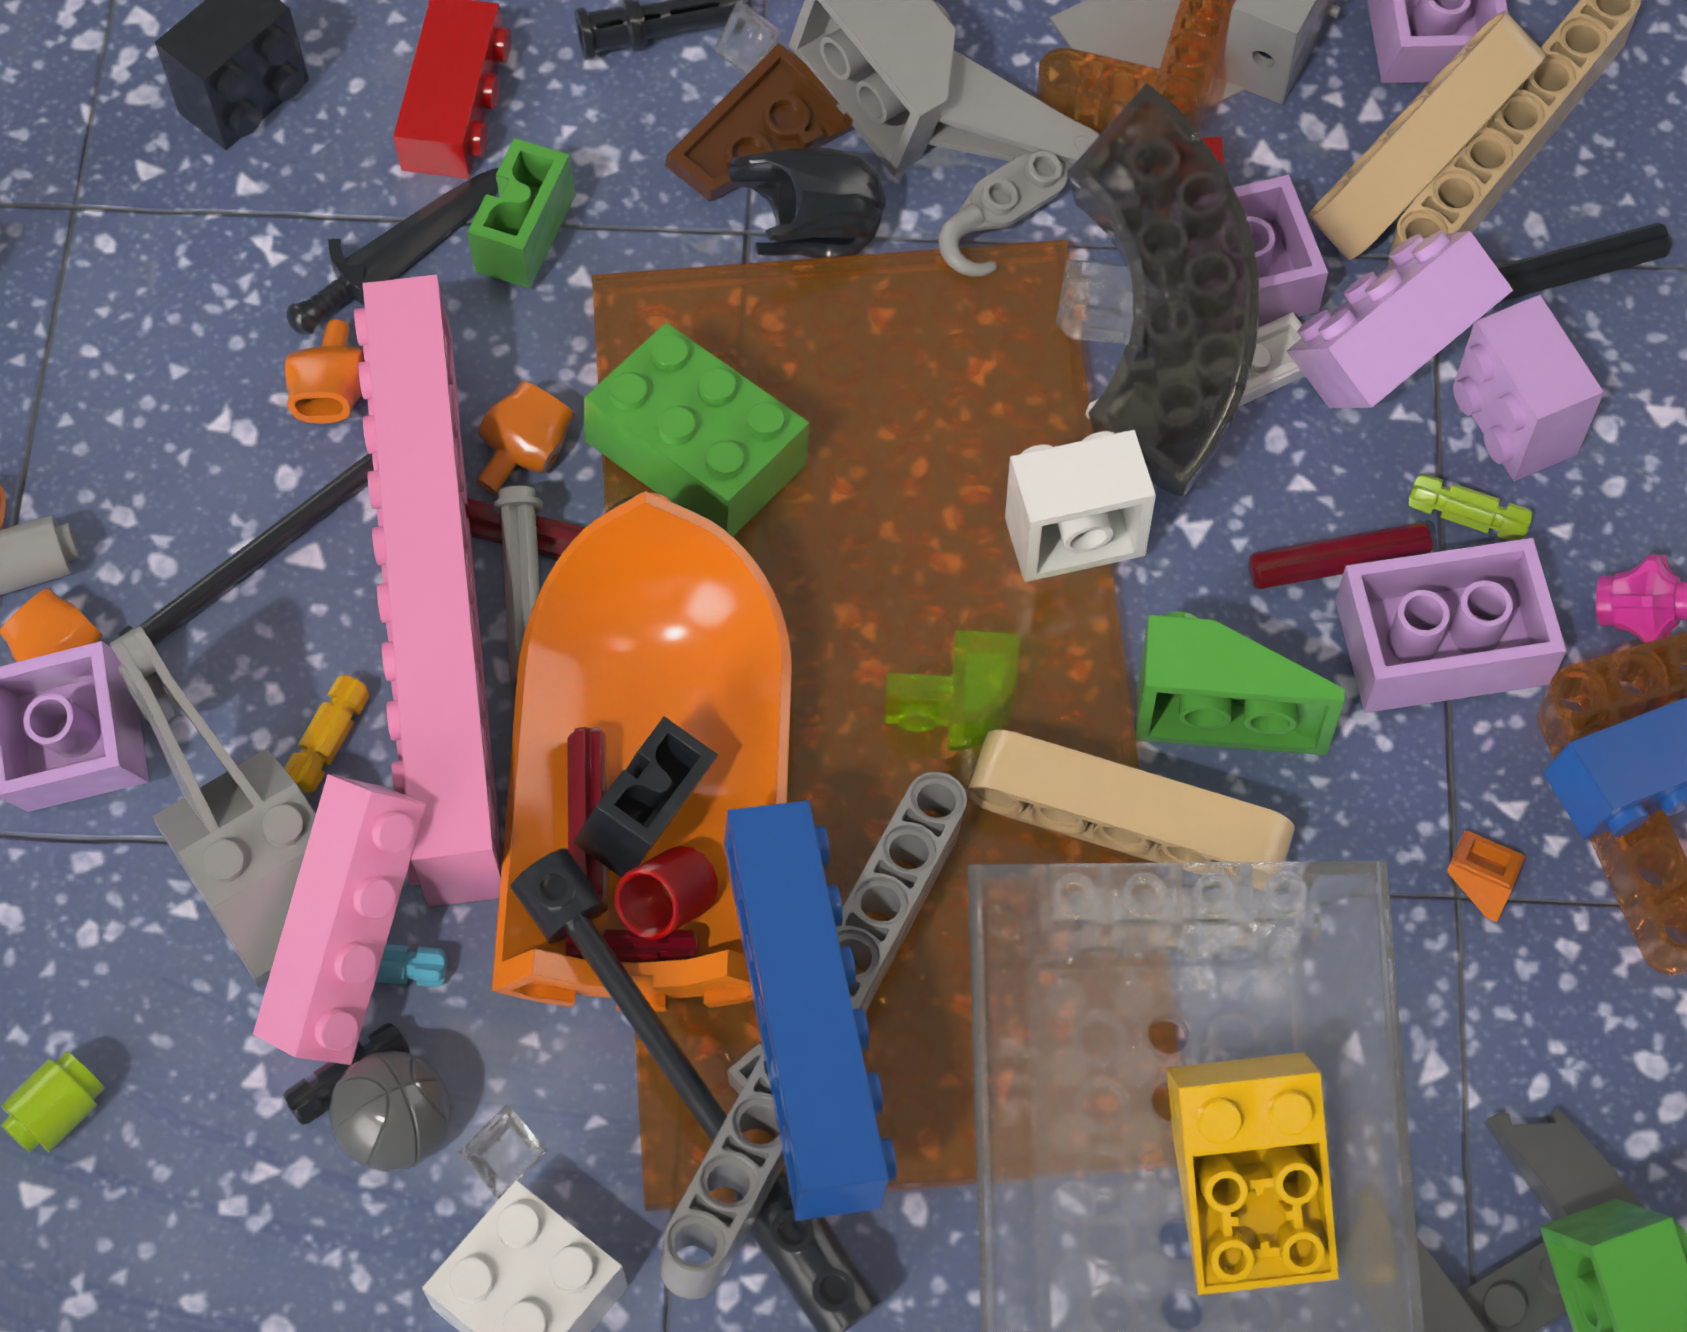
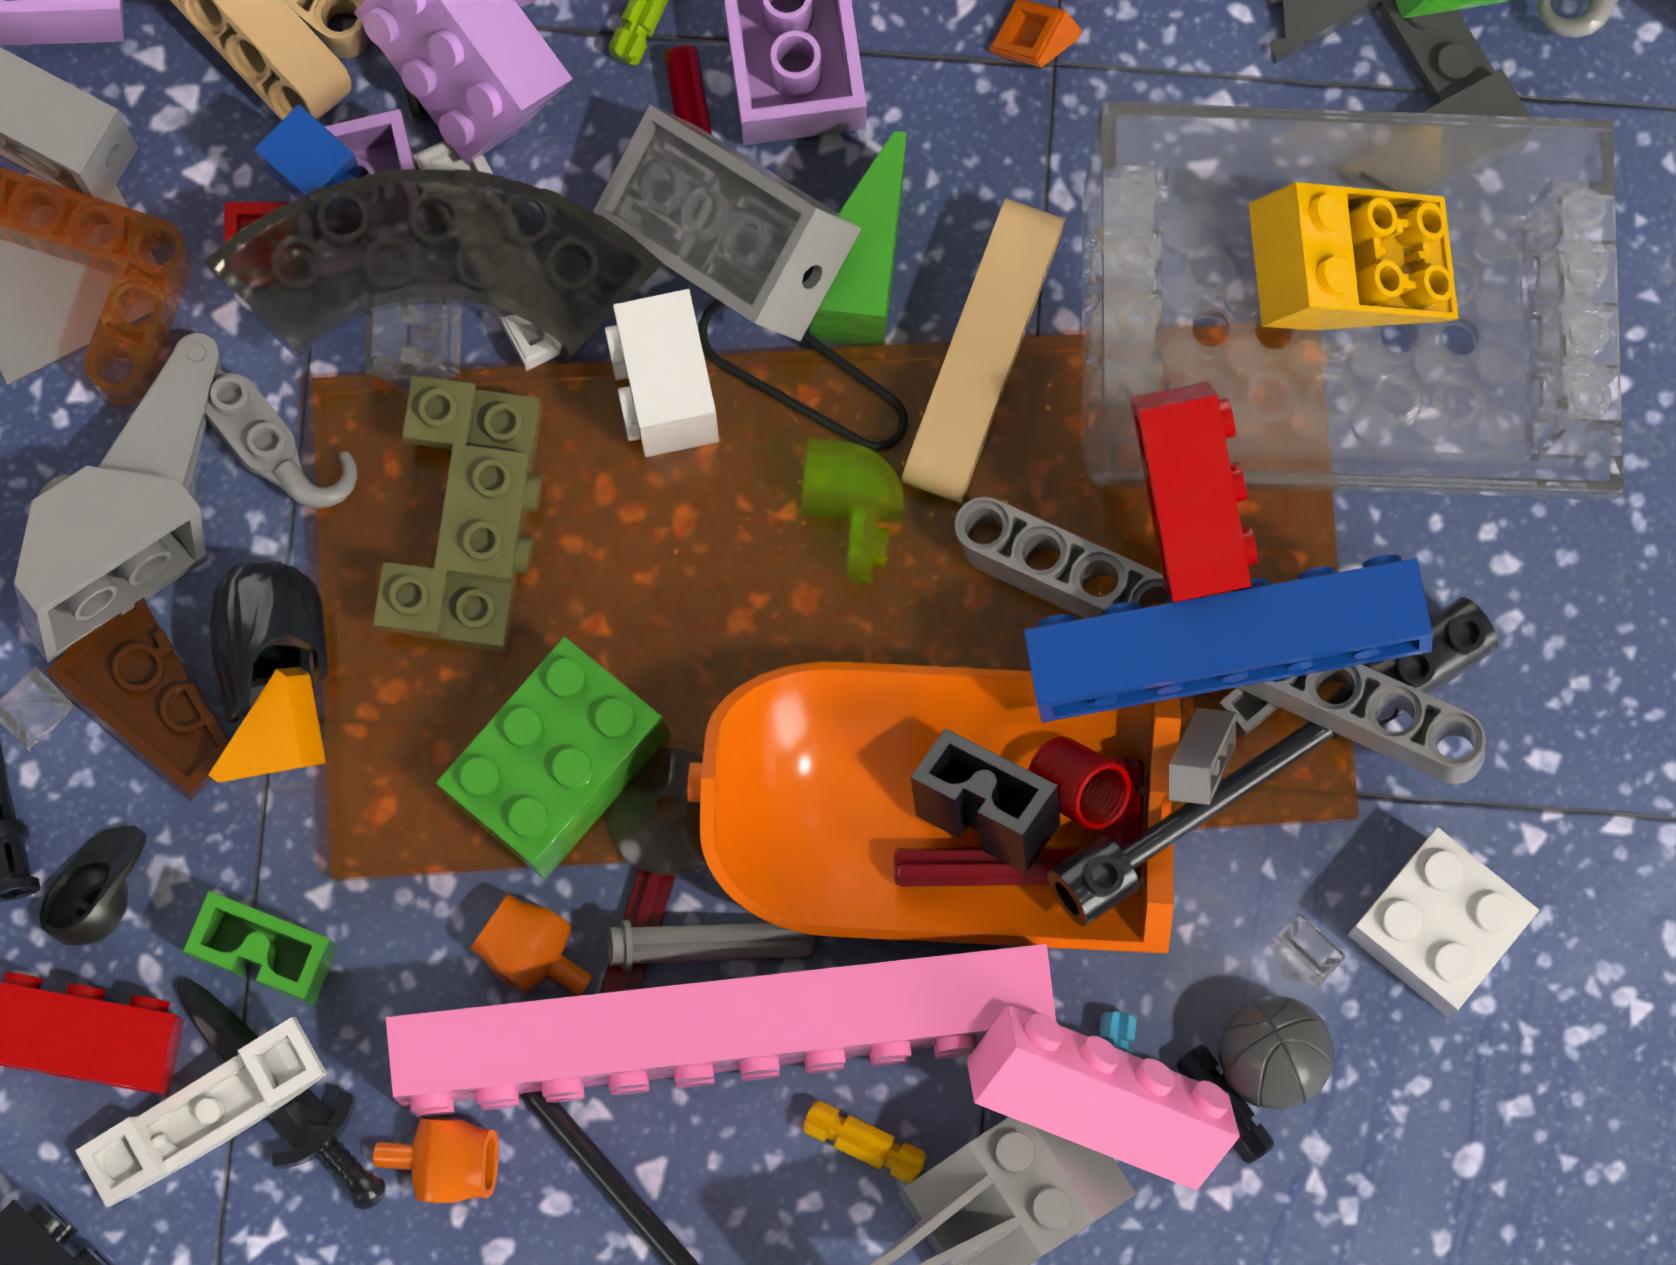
camera: 90 degrees left, 15 degrees up
(373, 179) = (202, 1114): none -> white slope
(579, 92) = (92, 889): none -> pearl dark grey cap
(693, 1011) = (1202, 756): none -> light grey piece
(724, 214) = (277, 731): none -> light orange slope
(933, 367) = (483, 516): none -> olive bracket
(953, 941) = (1194, 490): none -> red brick
(1071, 637) = (800, 407): none -> black piece
(1232, 544) = (727, 223): none -> brick
(1269, 182) = (305, 155): none -> blue brick

